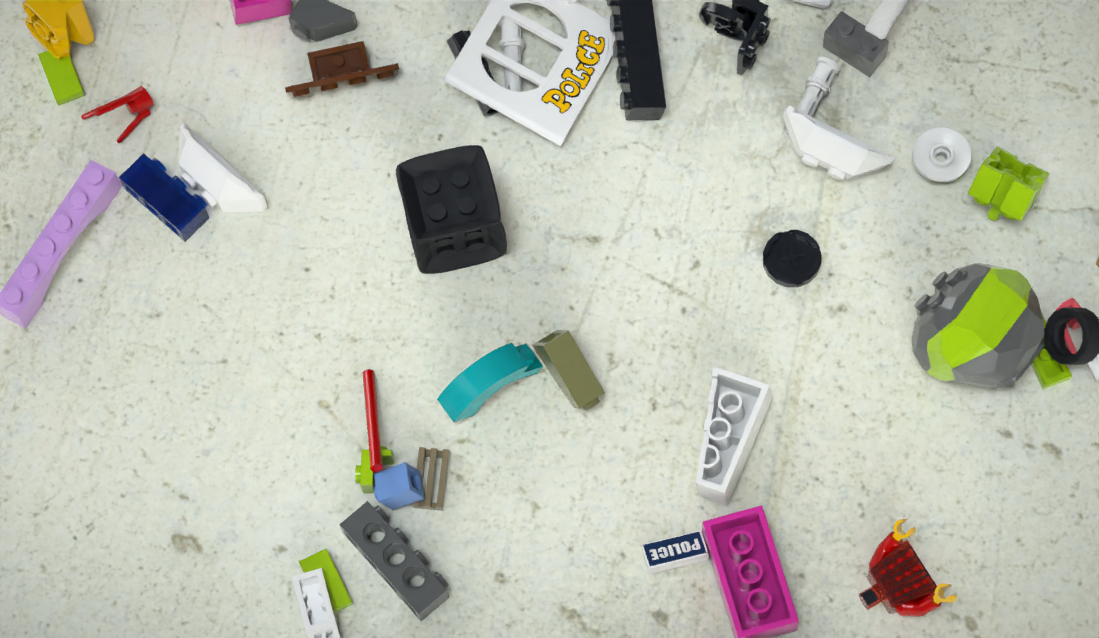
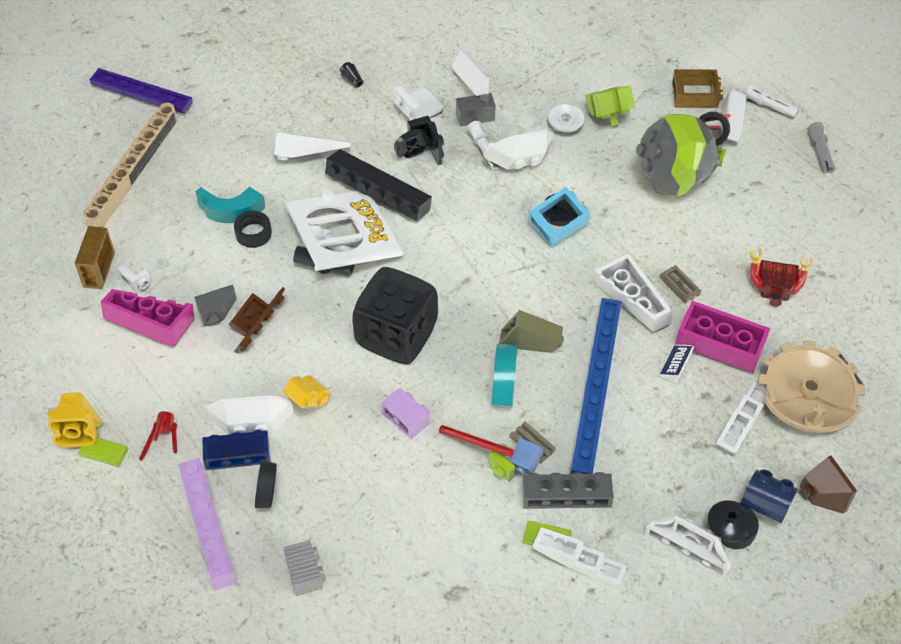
camera: 55 degrees left, 15 degrees down
(87, 375) = (303, 567): none -> light grey brick
(140, 260) = (265, 484): none -> black tyre
(284, 204) = (306, 391): none -> yellow brick
(352, 321) = (406, 413): none -> lavender brick
(564, 488) = (596, 387): none -> blue plate
(737, 262) = (545, 229): none -> medium azure window
(794, 498) = (677, 285): none -> dark tan tile

